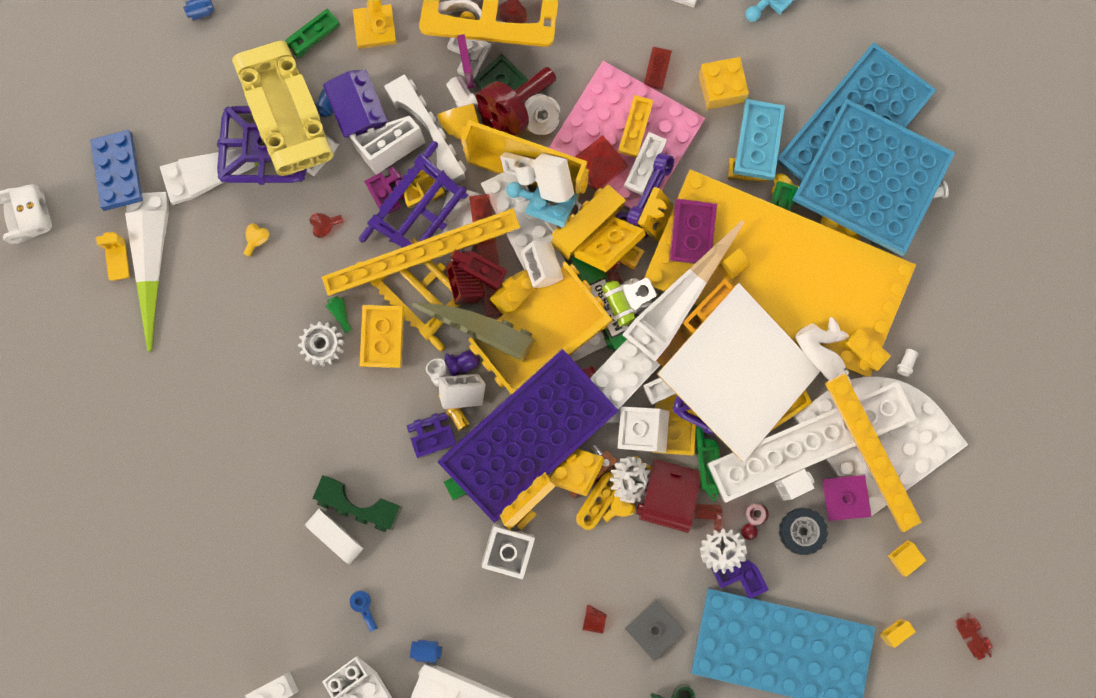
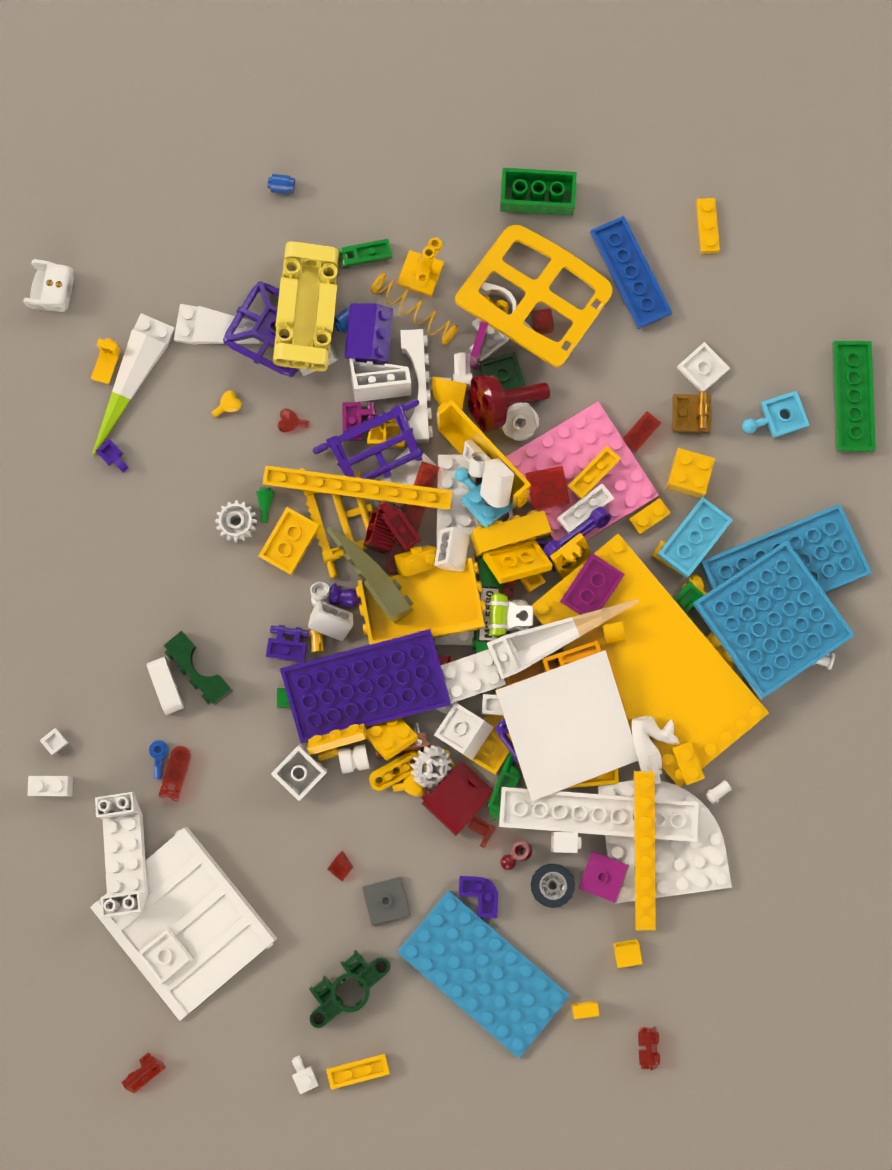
camera: 25 degrees right, 0 degrees up
(116, 170) = (143, 289): plate -> none
(166, 342) = (111, 454): none -> dark purple plate
(253, 647) = (54, 741): none -> white plate
(388, 615) = (175, 773): none -> clear red plate
(425, 651) = (190, 818): blue brick -> none
(432, 65) = (445, 339): none -> yellow piece
(553, 510) = (353, 759): none -> white wheel
(694, 28) = (691, 413): none -> pearl gold plate
(706, 142) = (649, 516): none -> yellow plate
(732, 553) = (479, 863): white gear -> none

